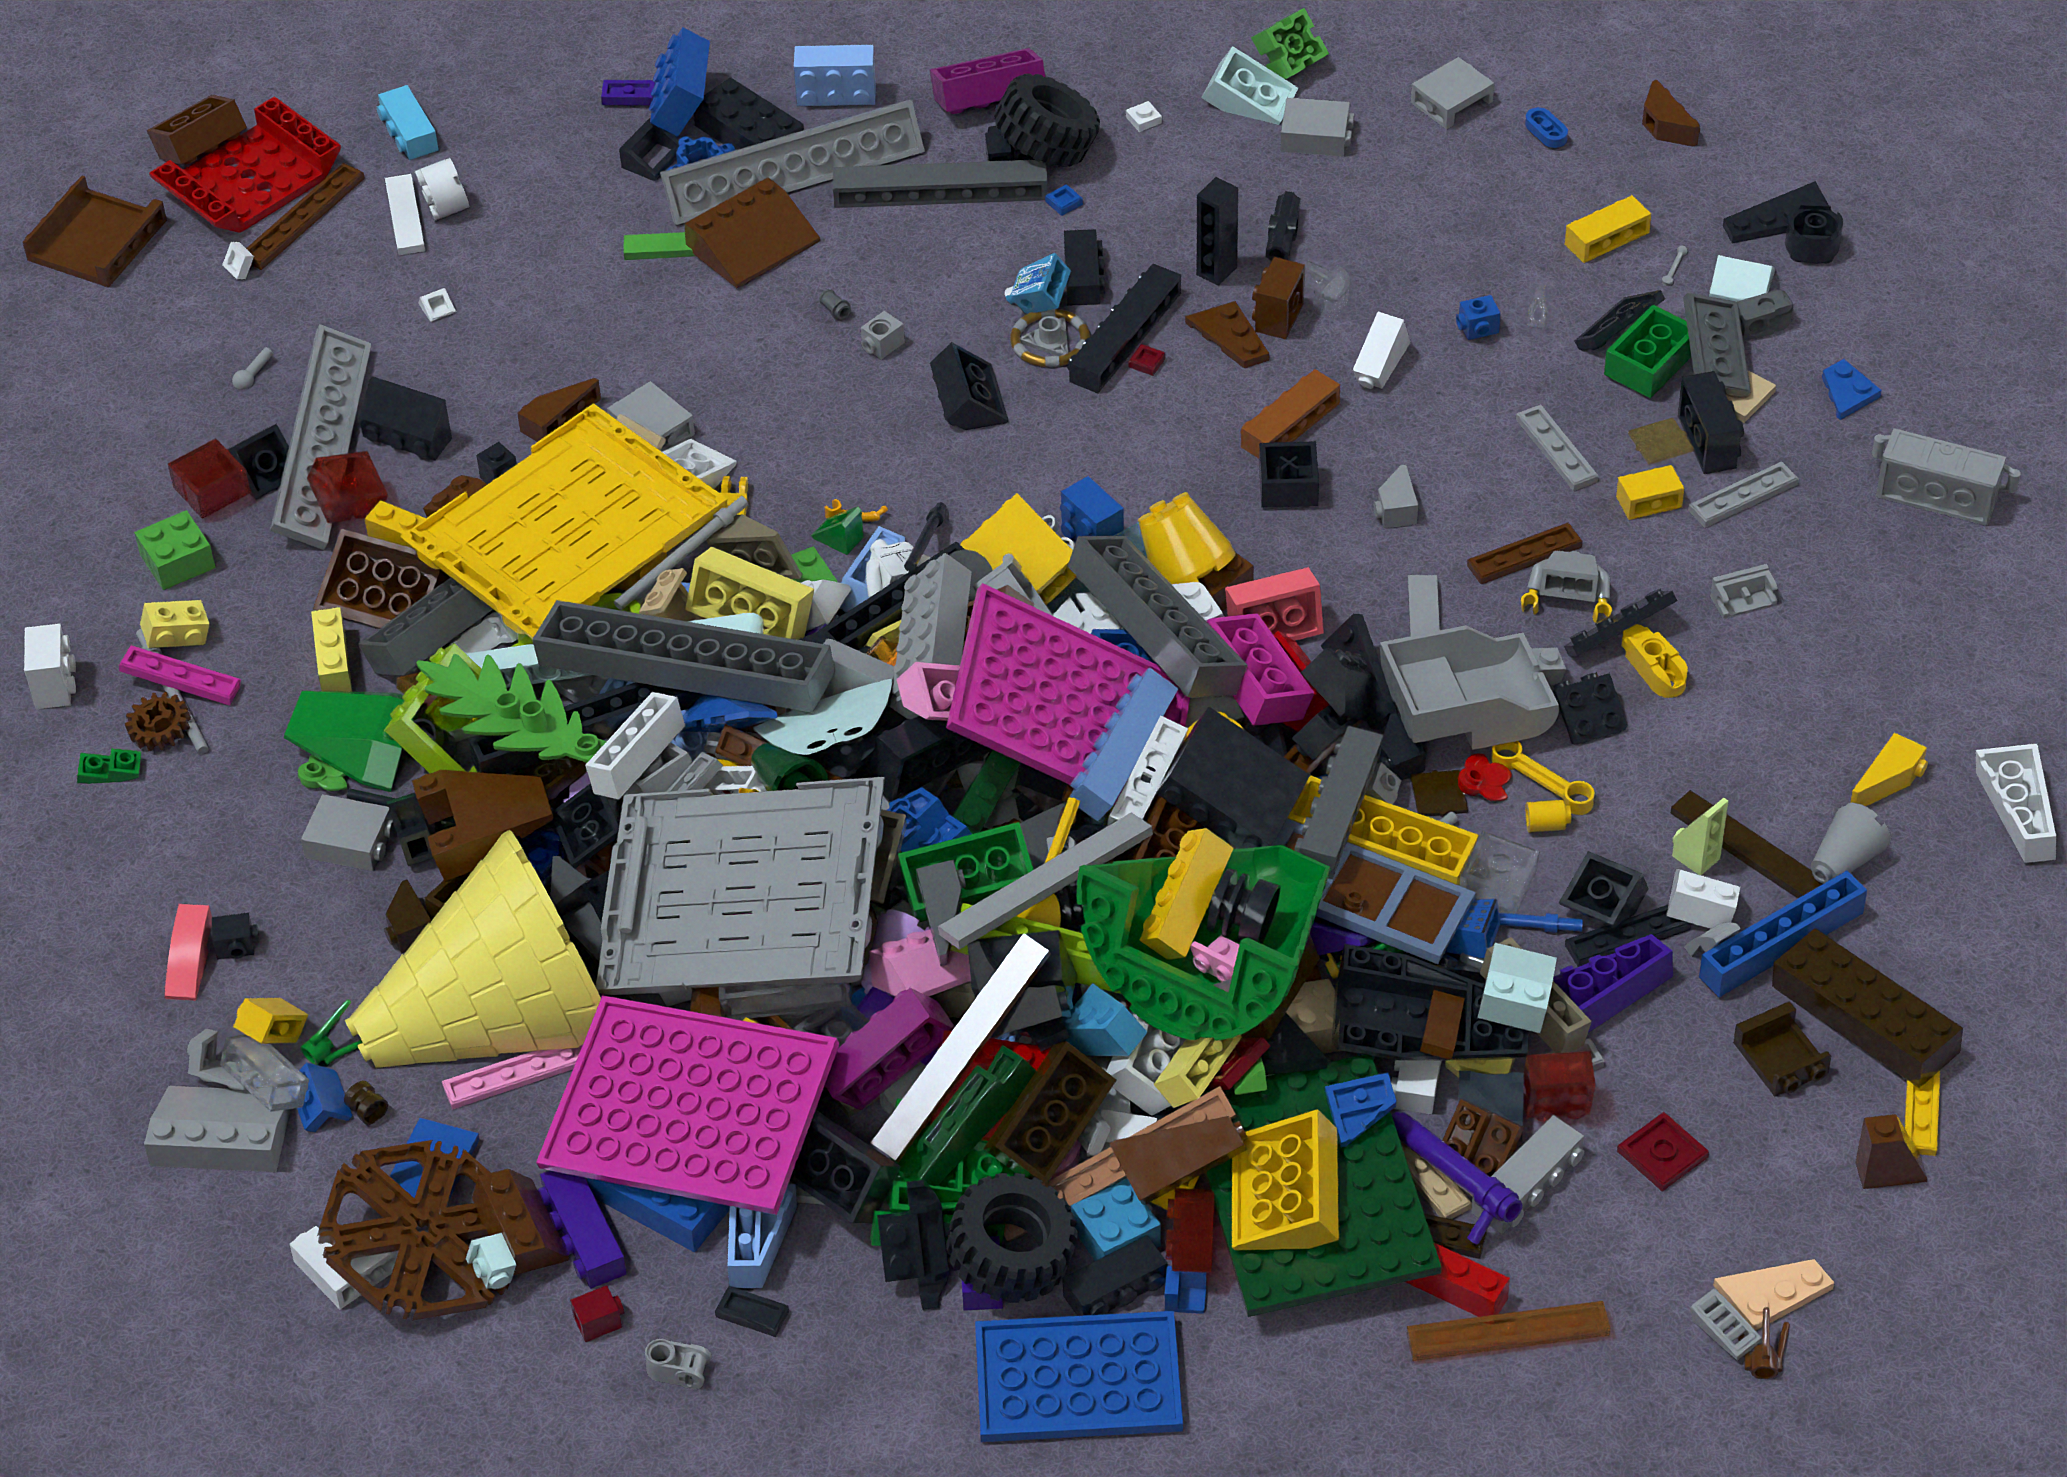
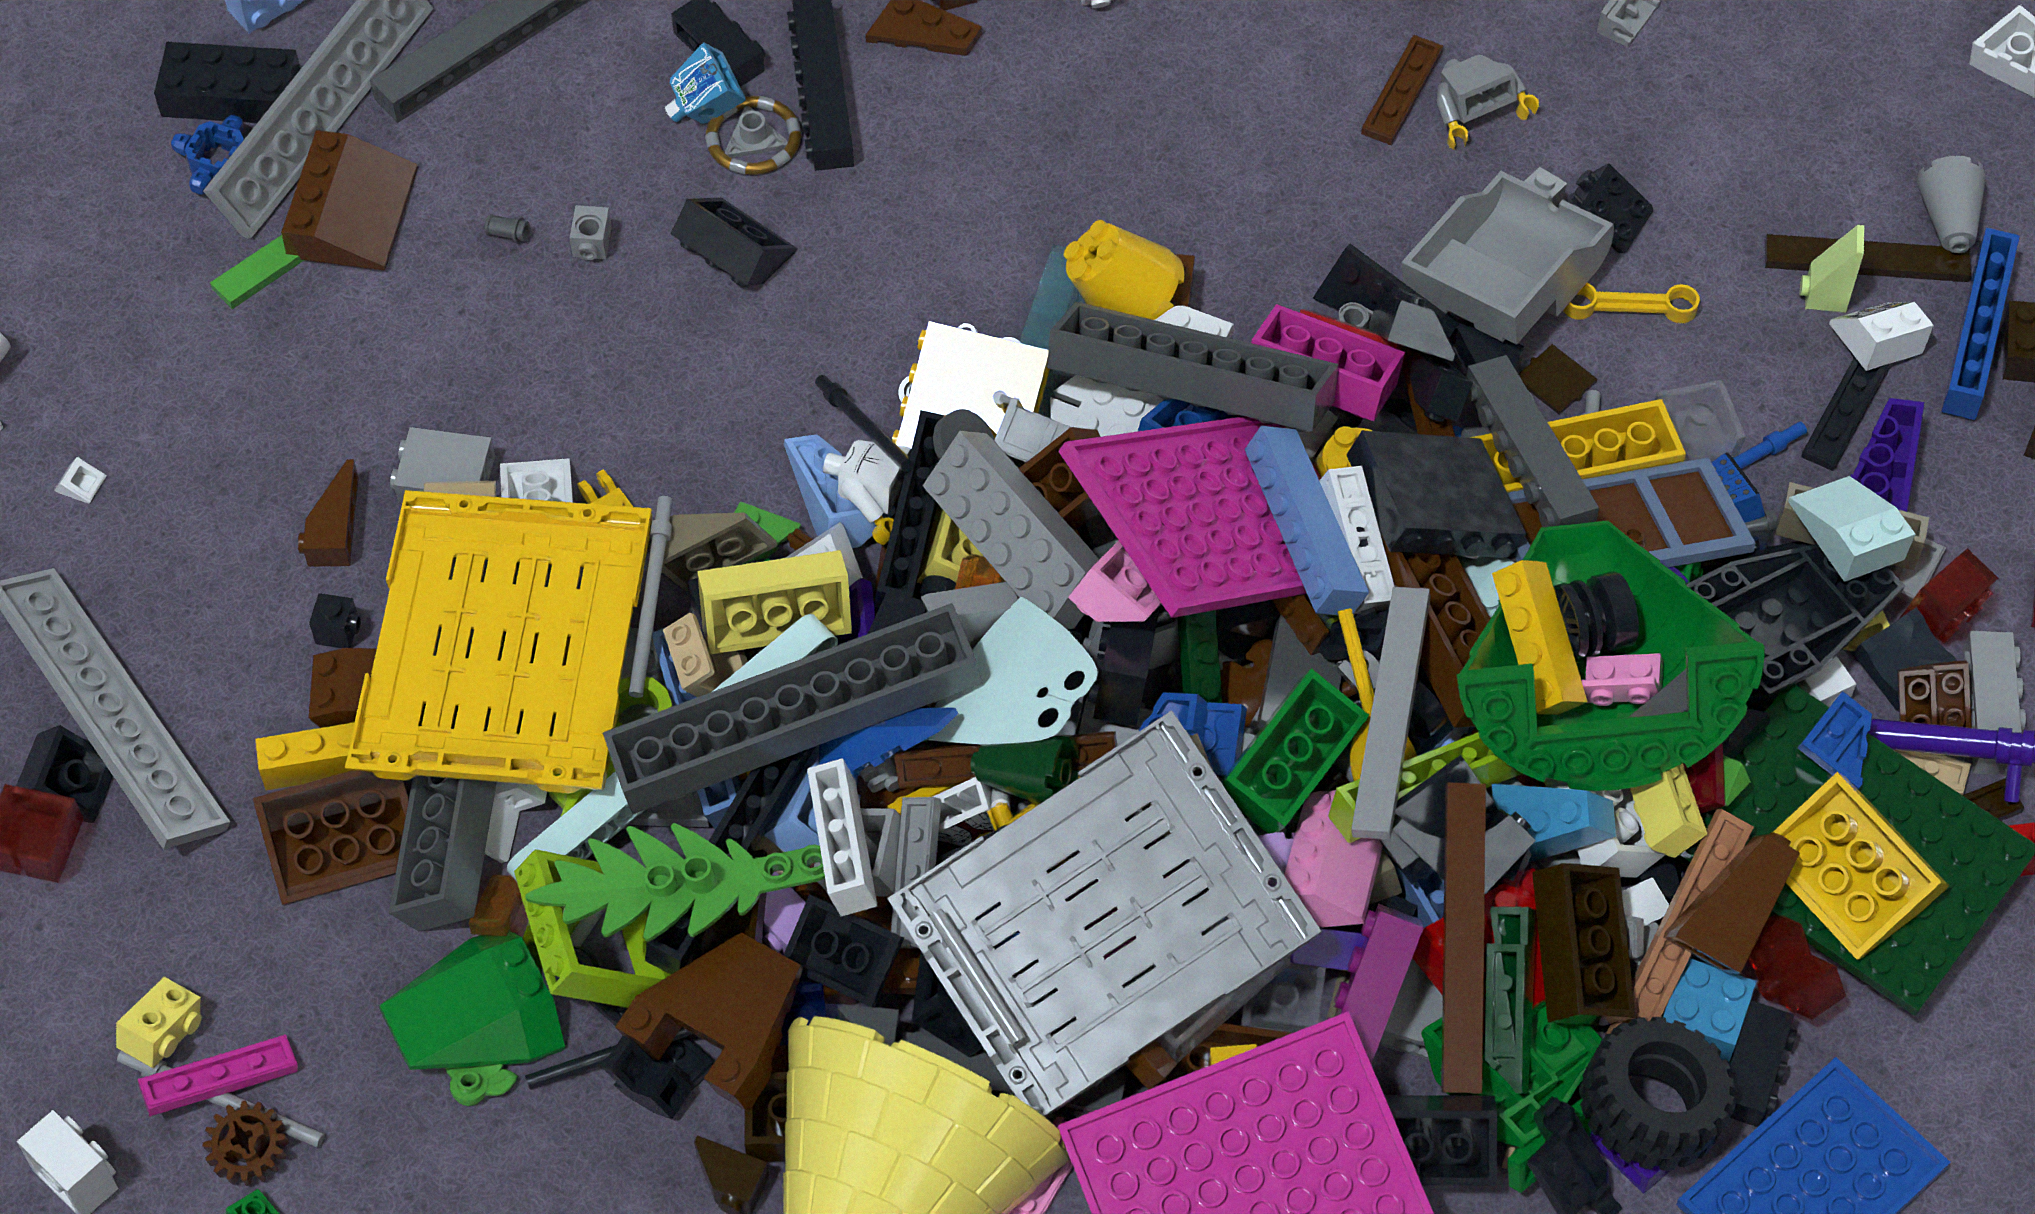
camera: 40 degrees left, 10 degrees up
(174, 550) = (70, 938): bright green brick -> none
(331, 650) = (360, 940): light yellow brick -> none
(346, 486) = (203, 746): clear red piece -> none
(348, 832) = (575, 1125): light grey brick -> none
(405, 419) = (185, 631): black slope -> none
(627, 92) = (58, 120): dark purple plate -> none
(641, 144) = (137, 195): black tile -> none
(679, 81) = (121, 77): blue brick -> none
(841, 530) = (750, 468): green slope -> none
(866, 516) = (745, 442): light orange piece -> none
(942, 897) = (1314, 801): dark grey slope -> none
(1089, 511) = (995, 299): blue brick -> none
(1147, 359) = (869, 102): dark red tile -> none
(1185, 1291) = (1820, 1034): blue panel -> none
(1283, 601) = (1257, 280): coral brick -> none
(1288, 474) = (1128, 141): black brick -> none
(1292, 412) = (1065, 79): dark orange brick -> none
(1397, 500) = (1247, 106): light grey slope -> none
(1423, 604) = (1370, 204): light grey tile -> none
(1442, 1025) = (1823, 609): reddish brown tile -> none
(1484, 778) = (1583, 338): red plate -> none
(1547, 815) = (1675, 340): yellow brick -> none
(1605, 890) = (1800, 382): black slope -> none
(1611, 626) = (1560, 100): black wing -> none
(1655, 660) = (1618, 125): yellow piece -> none
(1712, 938) = (1932, 365): light grey slope -> none
(1891, 770) = (1909, 101): yellow slope -> none

